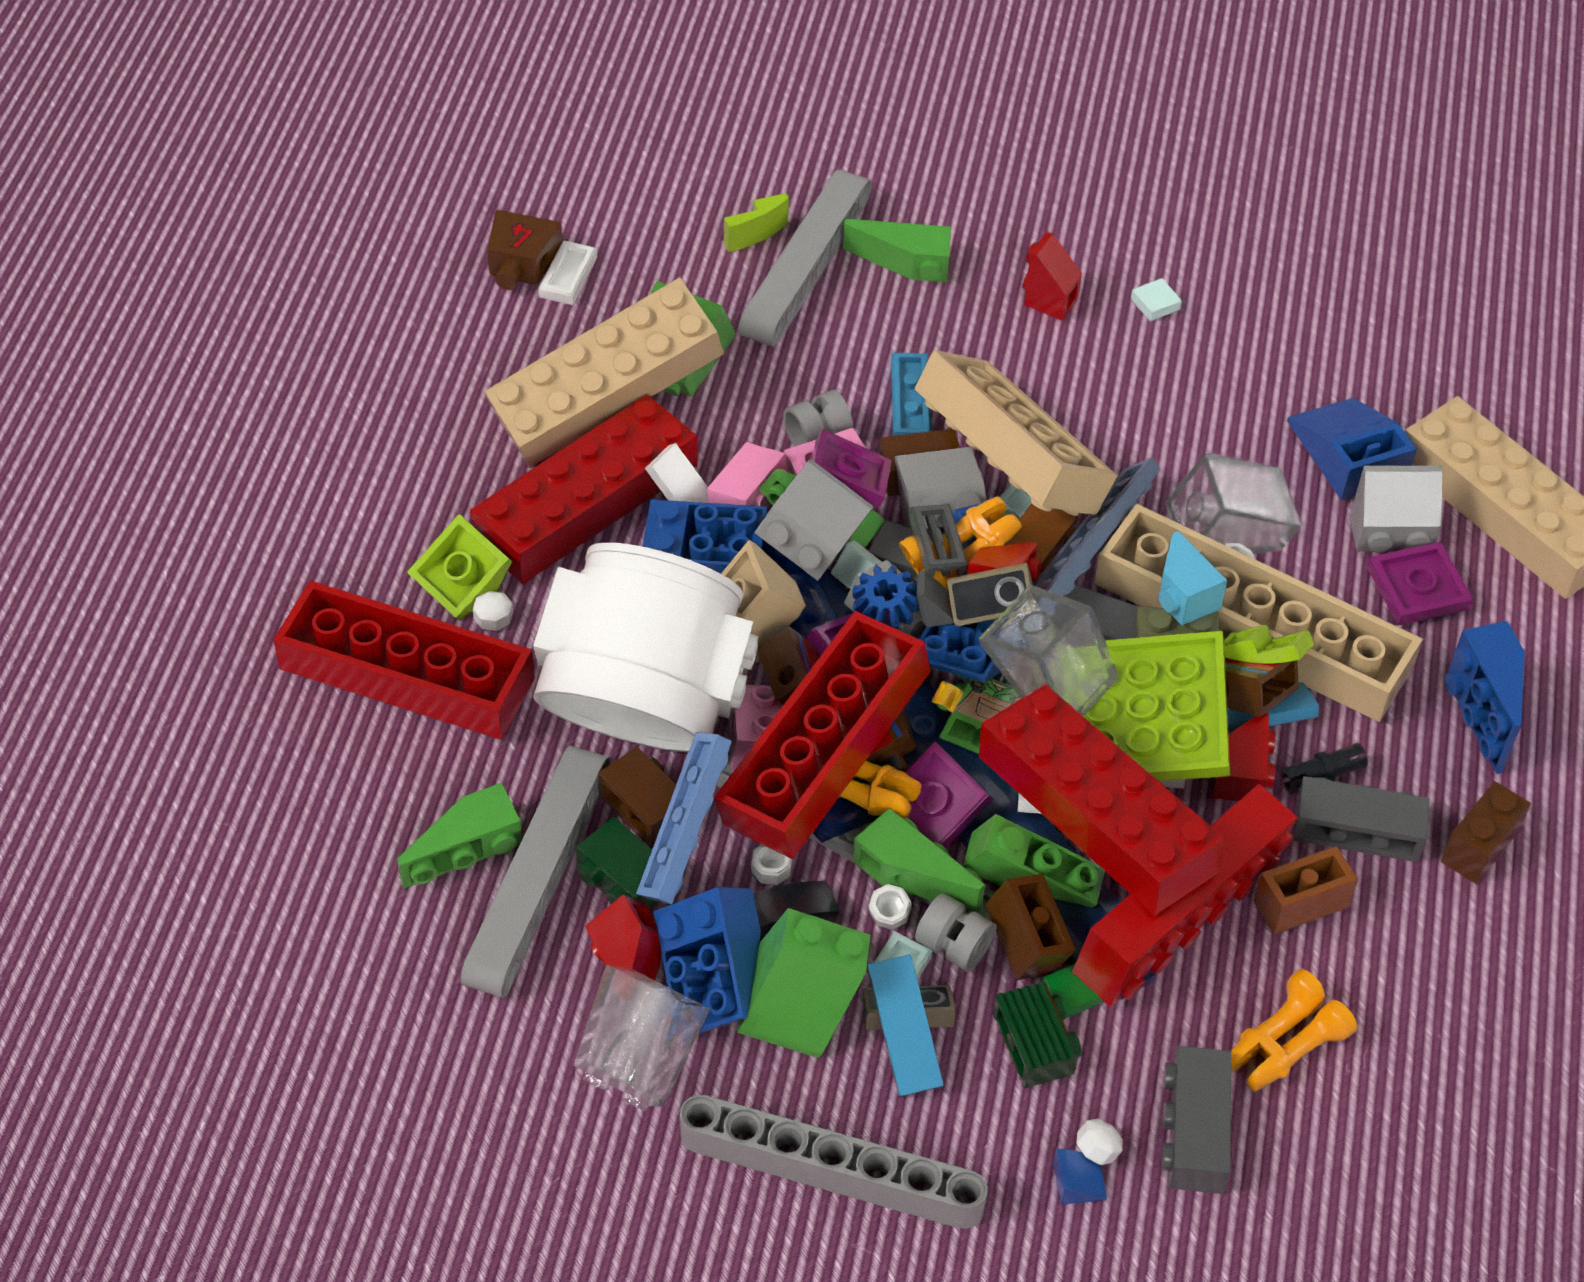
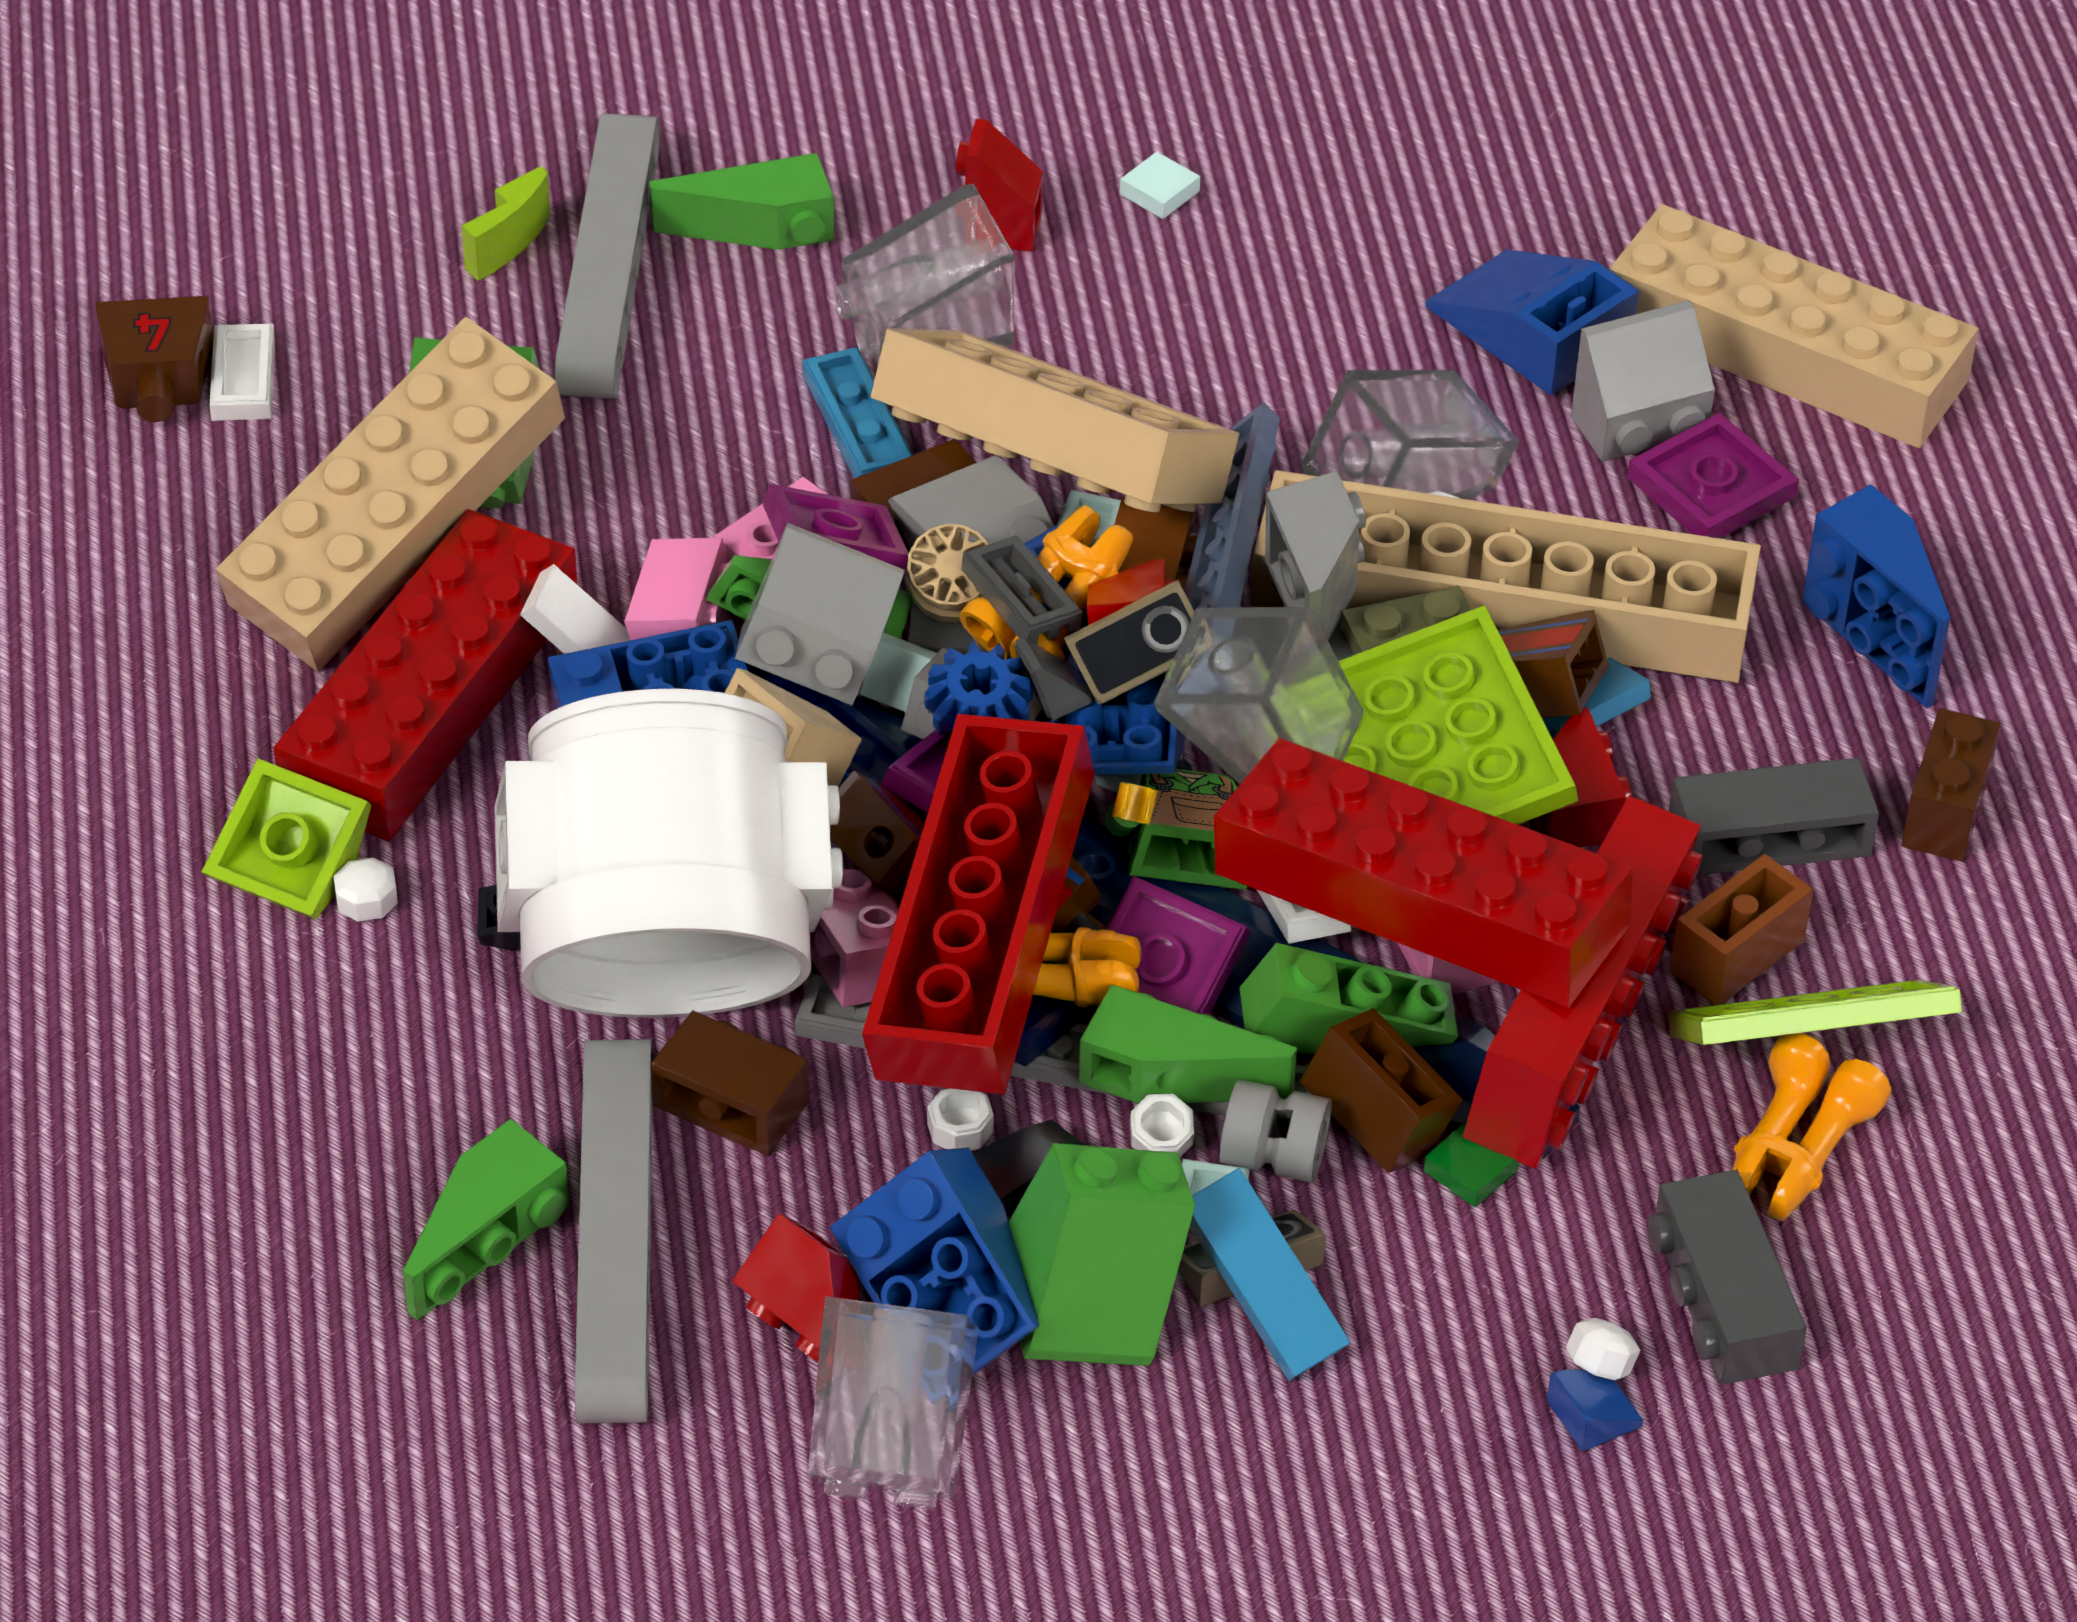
camera: 20 degrees left, 5 degrees down
(405, 659) = (269, 990): red brick -> none
(614, 862) = (741, 1182): dark green brick -> none
(684, 817) = (828, 1076): medium blue plate -> none
(825, 412) = (738, 479): light grey wheel -> none
(846, 1178) = (1271, 1499): light grey beam -> none
(896, 511) = (936, 574): none -> tan wheel
(986, 323) = (932, 273): none -> clear slope
(1036, 1034) = (1450, 1234): dark green brick -> none
(1131, 568) = (1315, 545): none -> light grey slope
(1189, 583) = (1409, 553): medium azure slope -> none
(1257, 646) = (1534, 618): lime slope -> none
(1325, 766) = (1692, 758): black pin -> none
(1328, 960) = (1814, 1011): none -> tile

